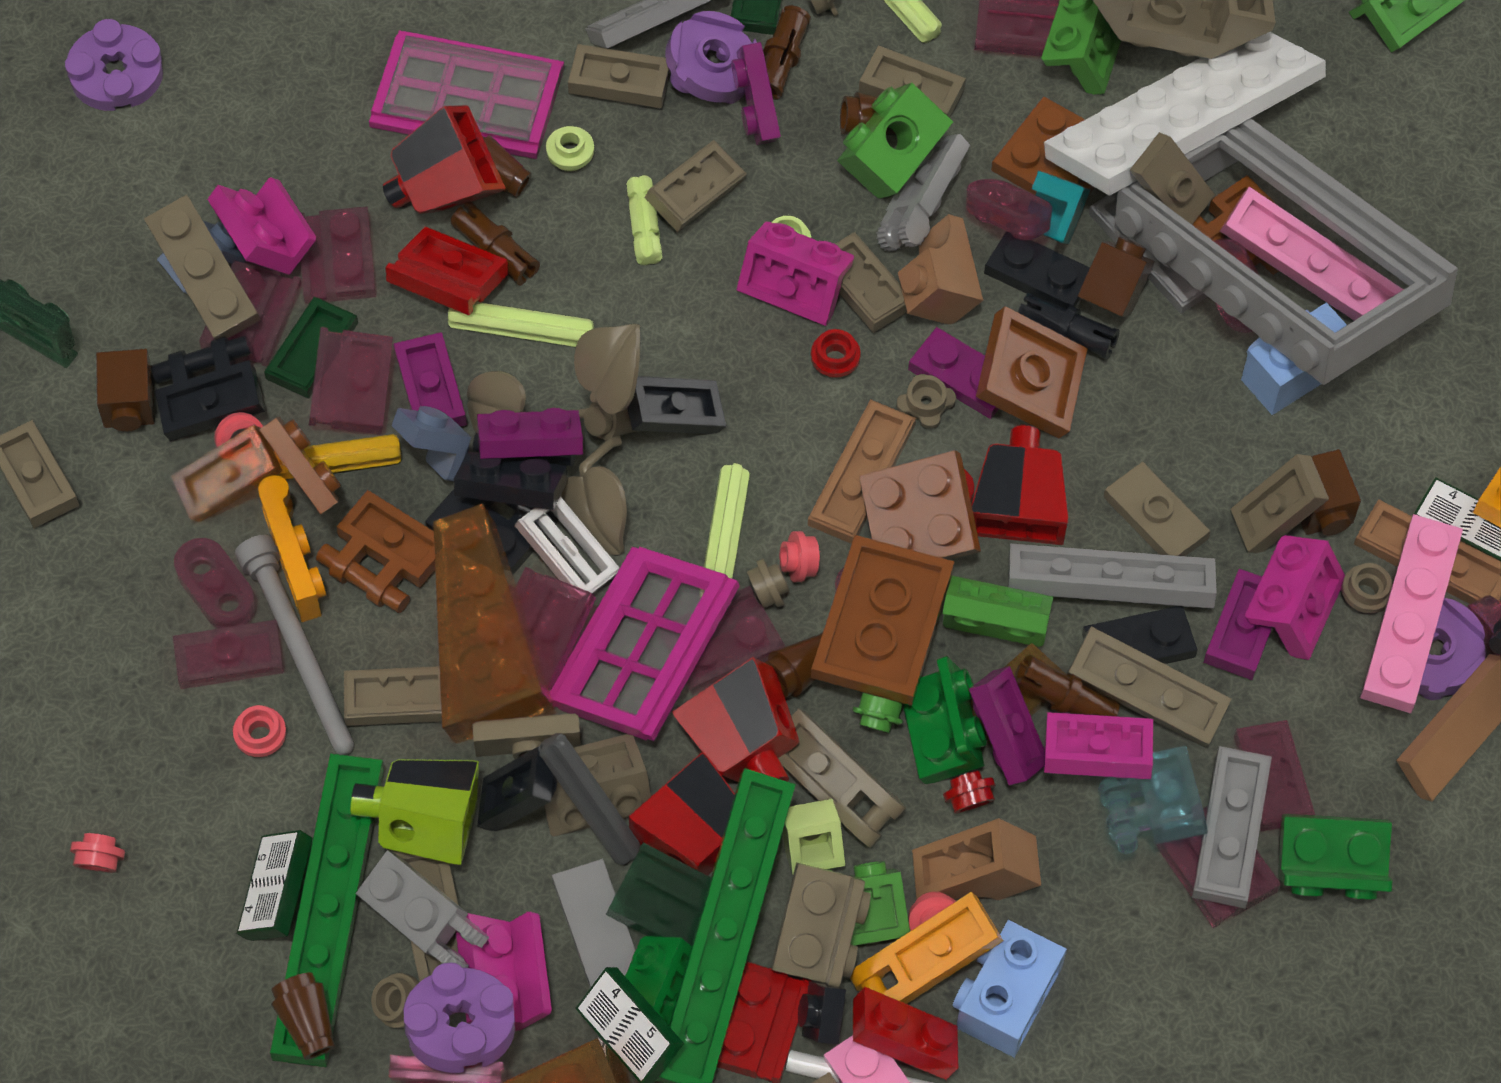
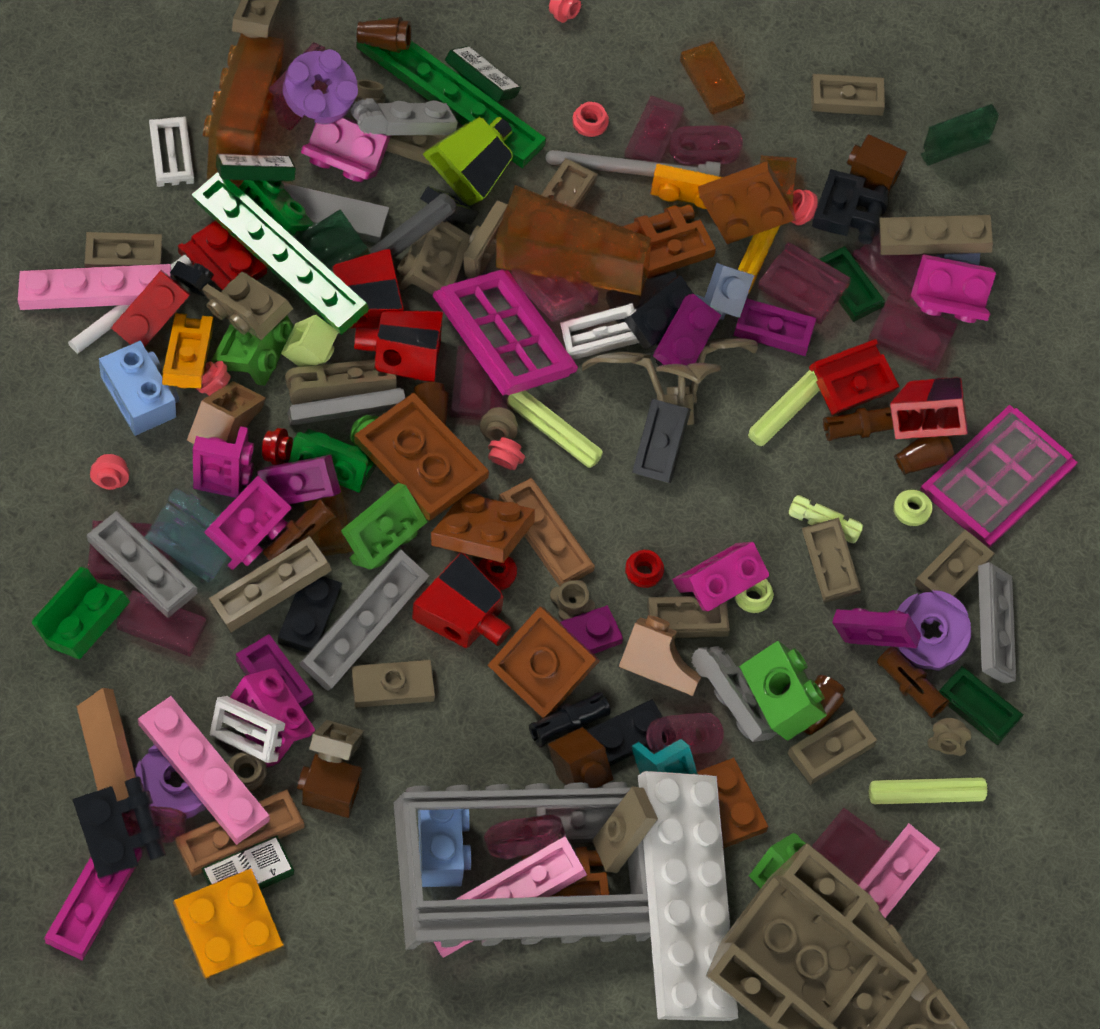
camera: 115 degrees right, 0 degrees up
(104, 629) = (712, 77): none -> clear orange plate
(870, 747) = (344, 406): none -> light grey tile
(1047, 799) = (222, 465): none -> dark pink bracket
(1139, 948) = (110, 472): none -> coral plate
(1335, 597) = (250, 714): none -> white tile

